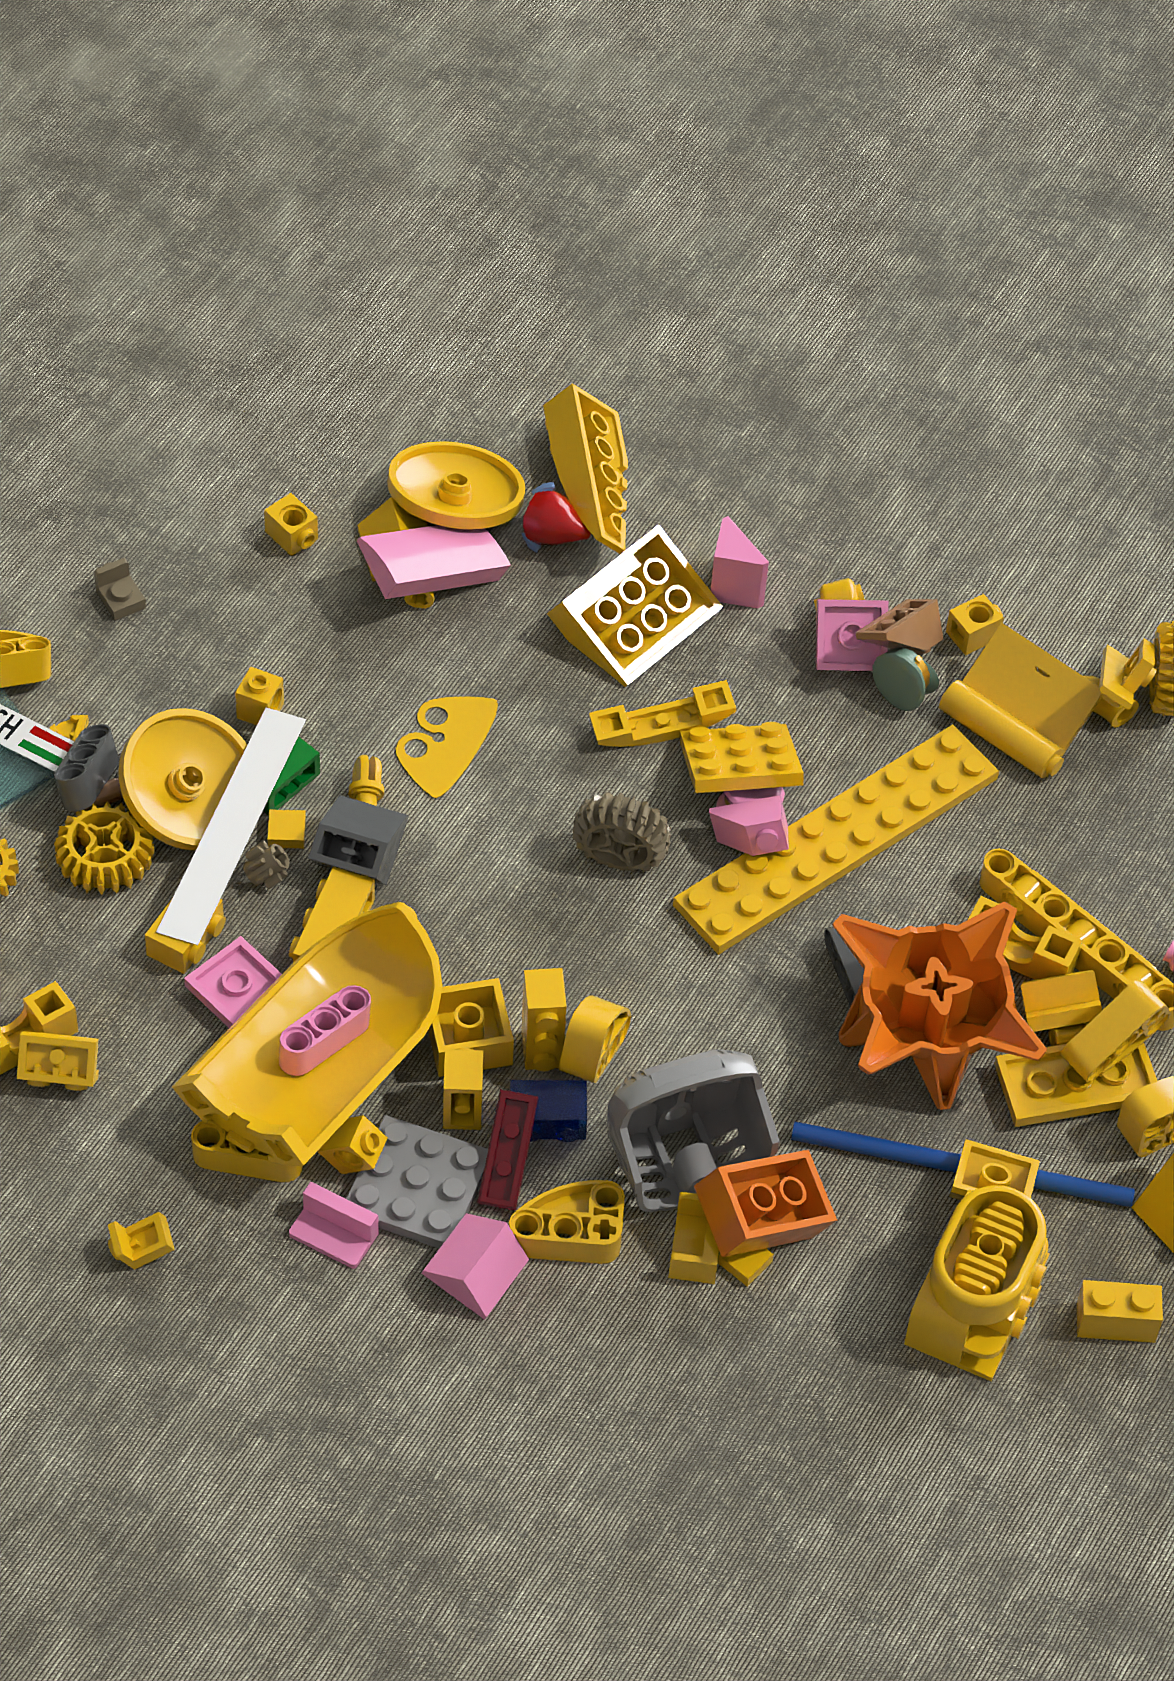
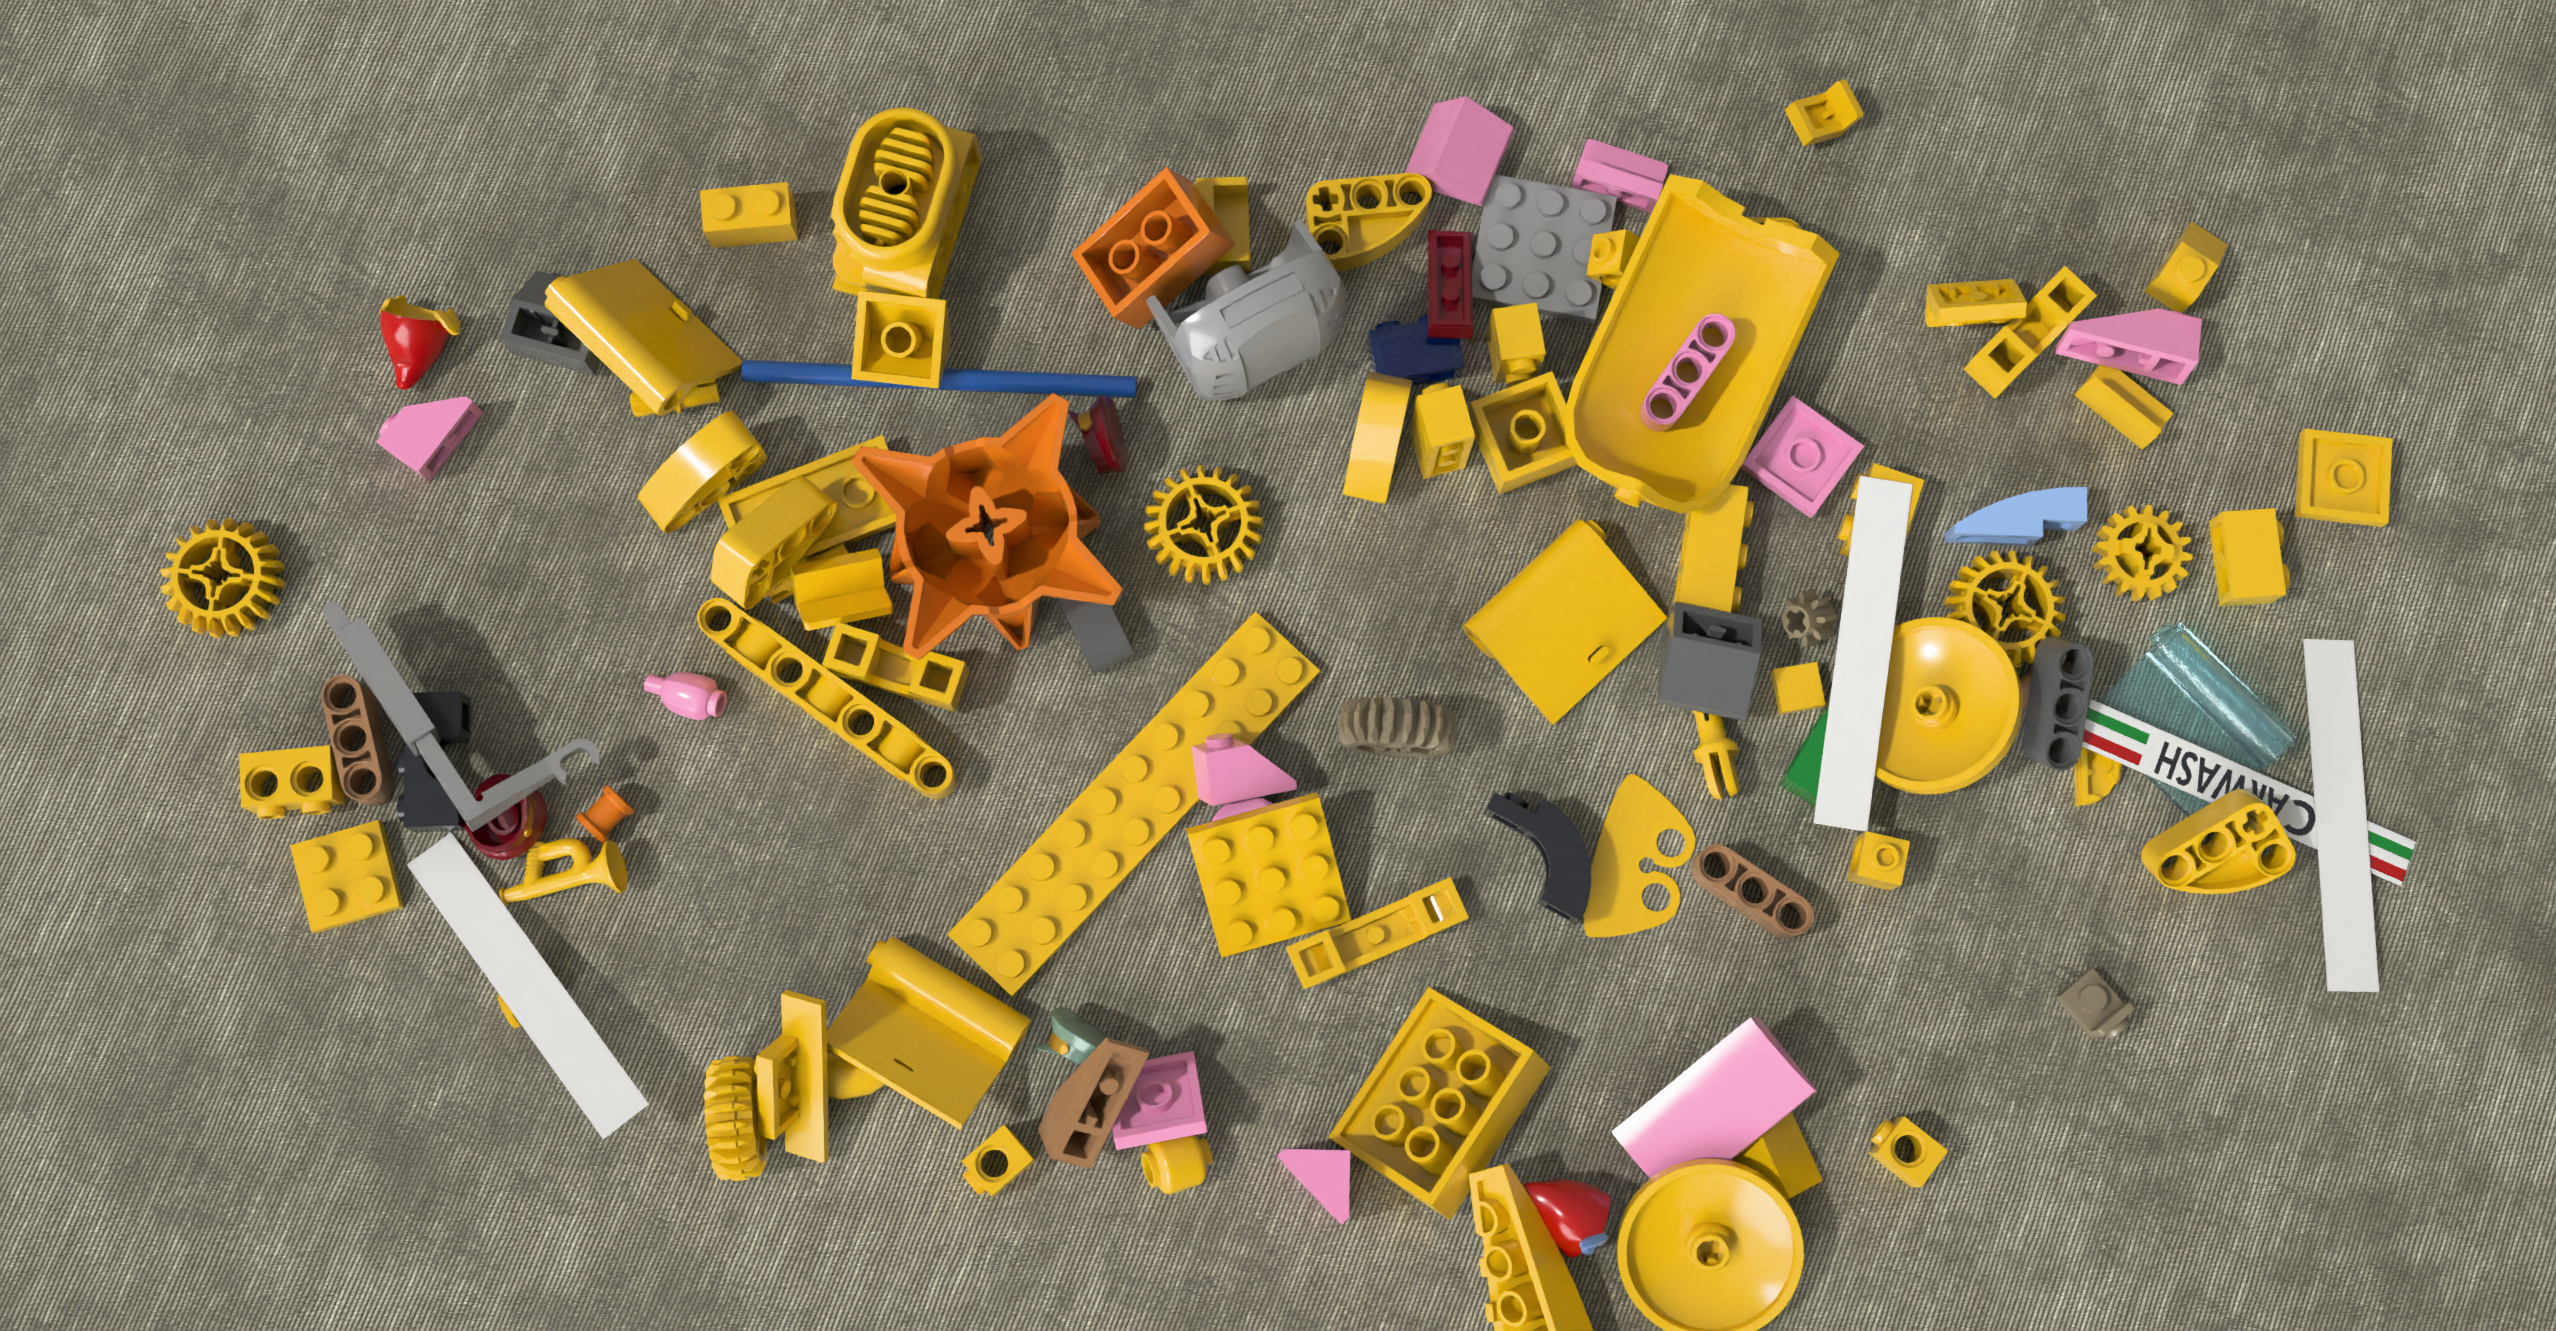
camera: 170 degrees right, 25 degrees up
(70, 908) = (2023, 518): none -> light blue slope
(363, 696) = (1774, 893): none -> medium nougat beam
(471, 899) = (1561, 613): none -> yellow door
(509, 755) = (1561, 847): none -> black arch
(767, 999) = (1186, 533): none -> yellow gear
(830, 1083) = (1103, 435): none -> dark red piece

